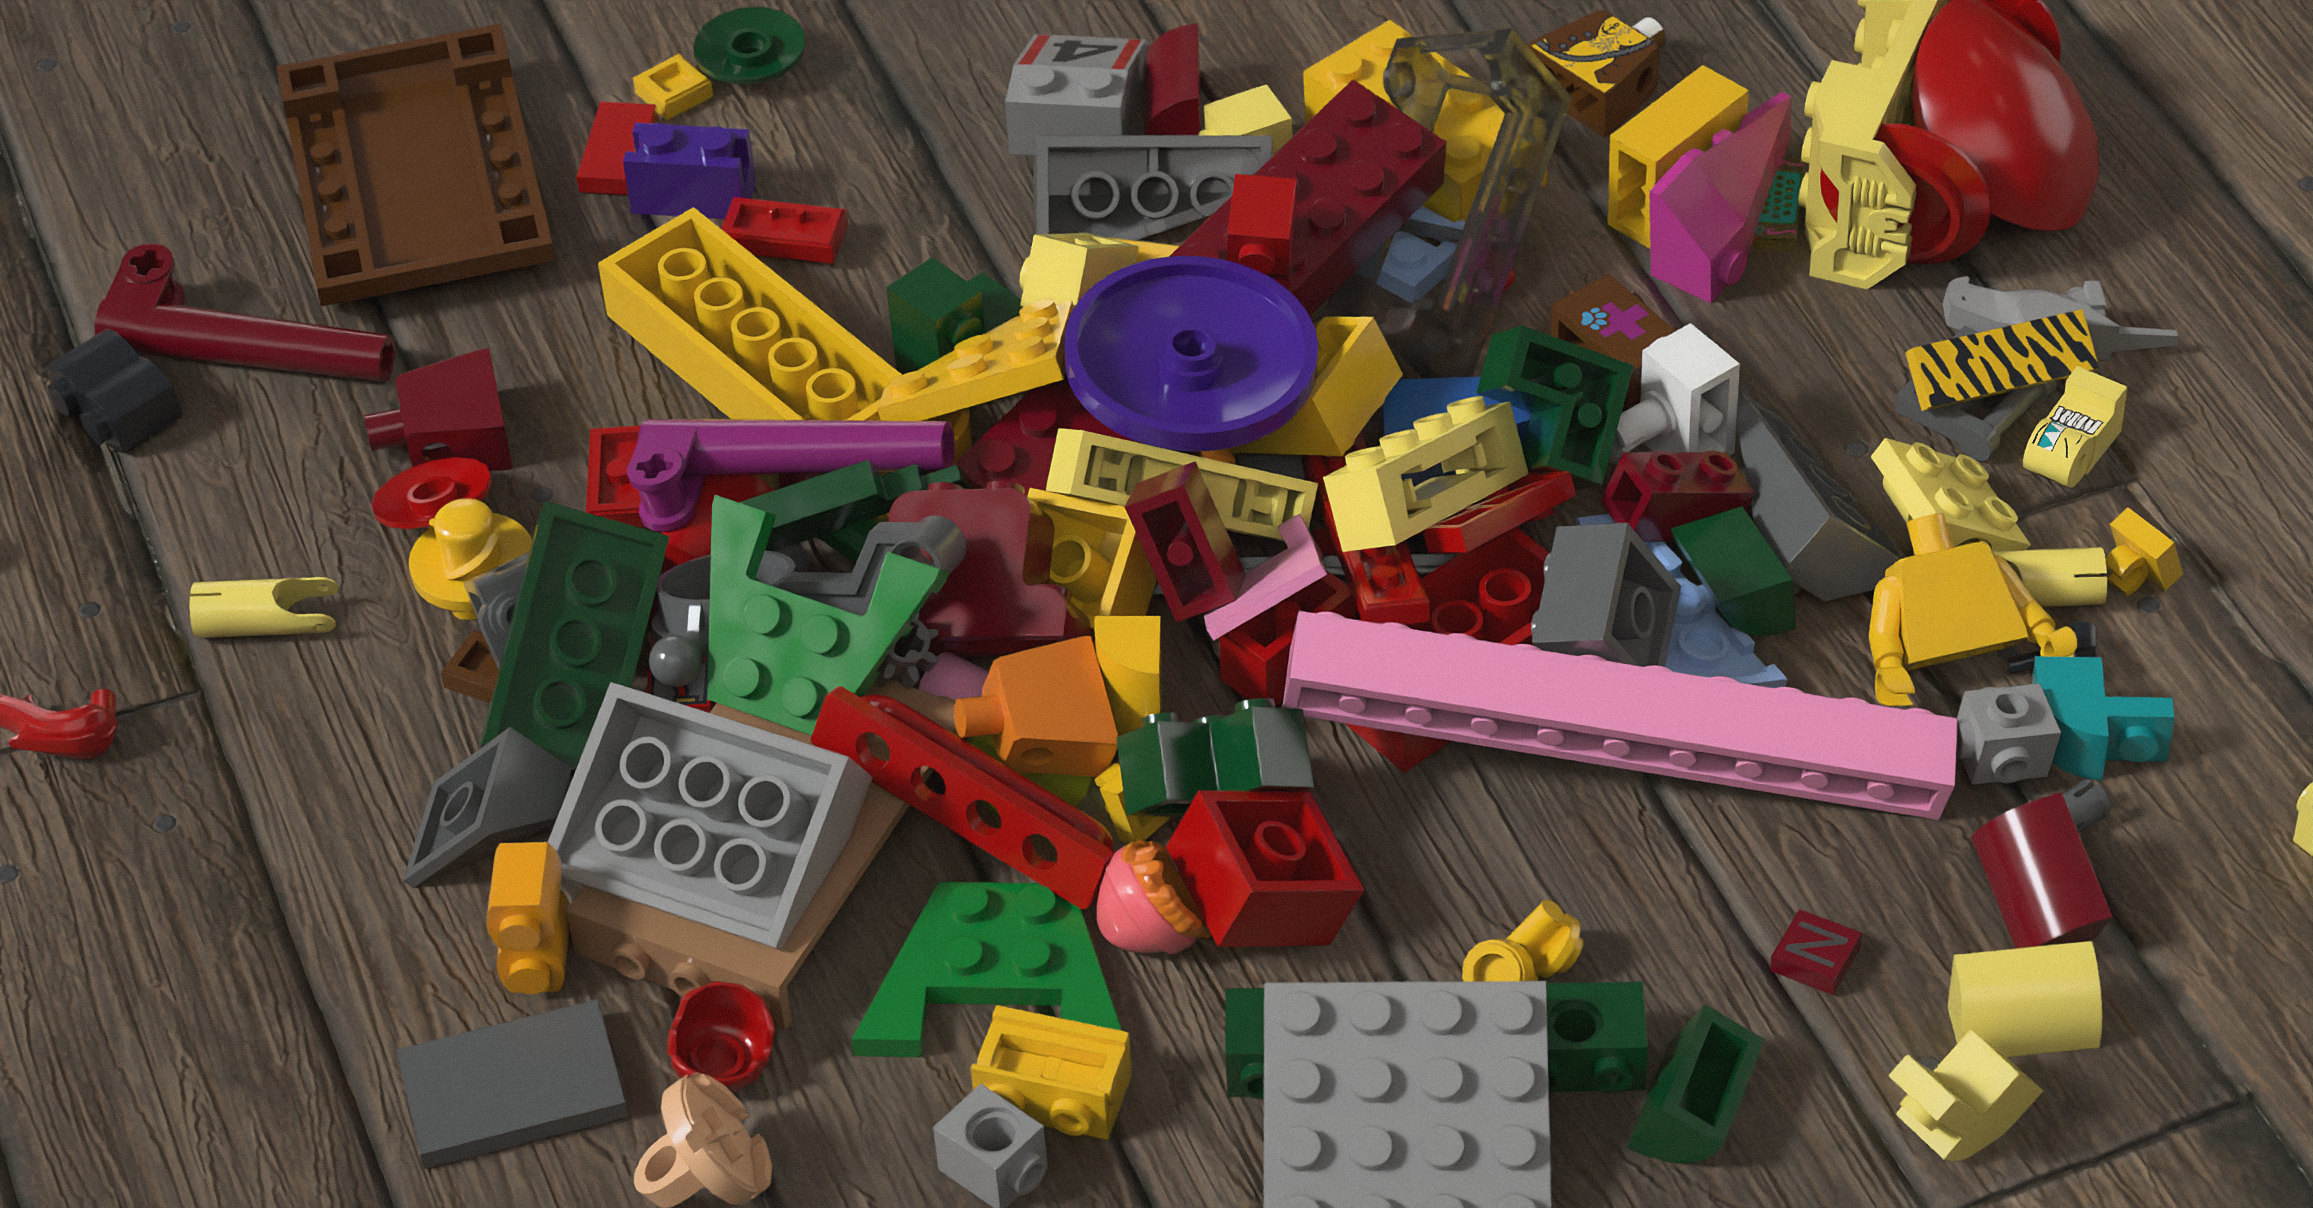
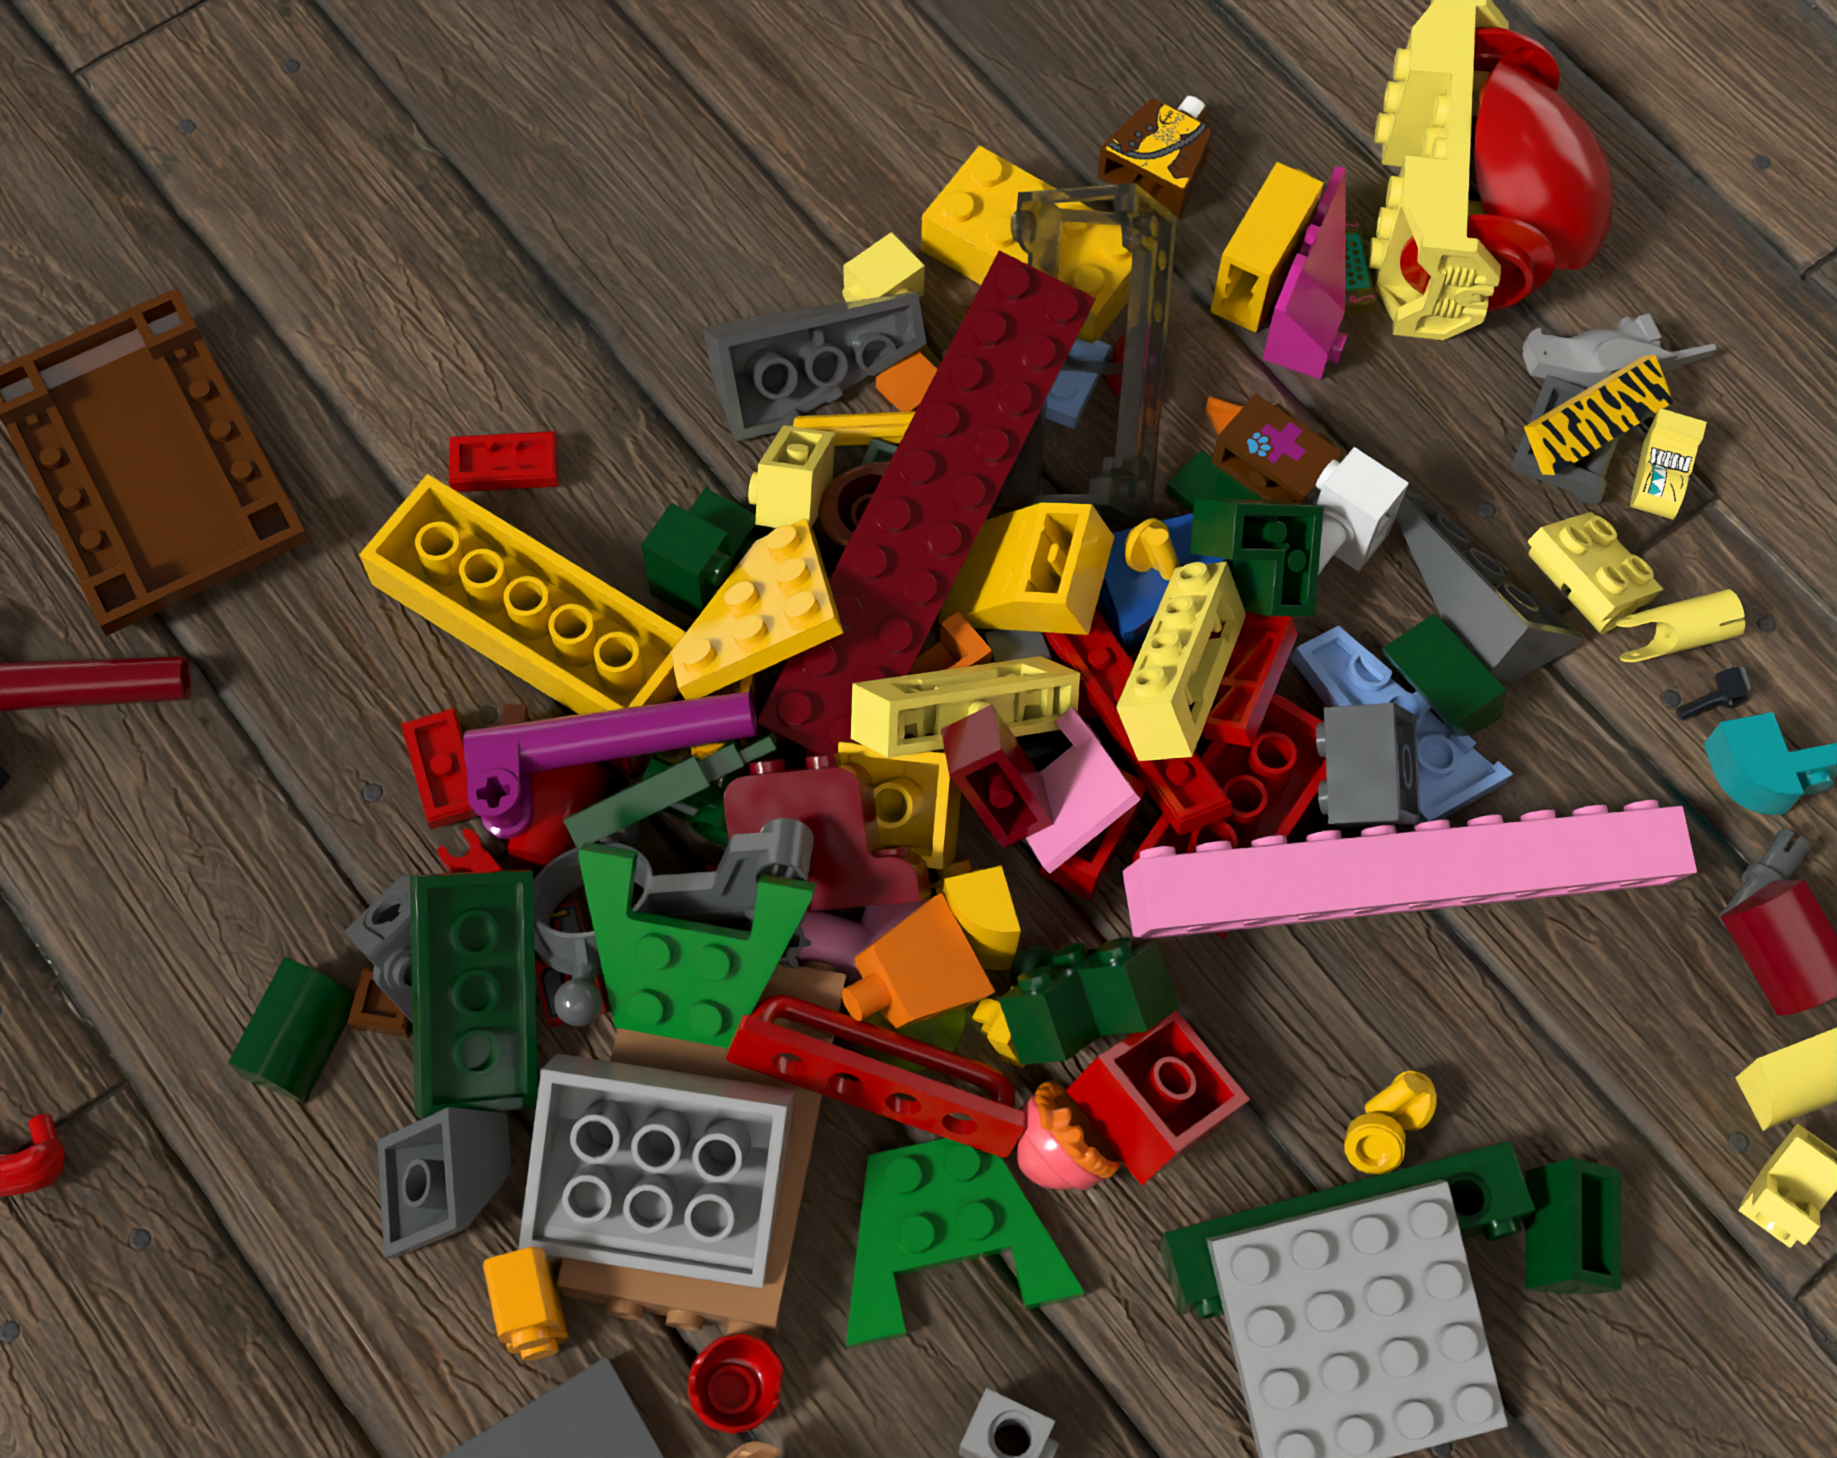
camera: 20 degrees left, 20 degrees up
(257, 607) = (147, 990): light yellow piece -> none
(380, 667) = (293, 1031): none -> dark green brick
(422, 490) = (277, 828): red dish -> none
(446, 414) = (264, 737): dark red torso -> none
(460, 546) = (331, 886): yellow plate -> none
(609, 139) = (322, 394): red tile -> none
(673, 86) = (350, 315): yellow tile -> none
(688, 169) = (400, 415): dark purple brick -> none
(749, 45) = (404, 248): dark green dish -> none
(1056, 1070) = (1033, 1345): yellow hinge -> none
(1072, 88) = (716, 258): light grey slope -> none
(1173, 83) = (804, 246): dark red brick -> none
(1191, 353) = (949, 583): dark purple dish -> none
(1262, 223) = (971, 431): red brick -> none
(1434, 385) = (1151, 547): none -> yellow plate
(1673, 489) = (1374, 610): dark red brick -> none
(1816, 951) = (1619, 1051): dark red tile -> none
(1951, 608) = (1632, 683): yellow torso -> none
(2006, 734) = (1716, 800): light grey brick -> none
(2140, 554) = (1759, 583): yellow tile -> none

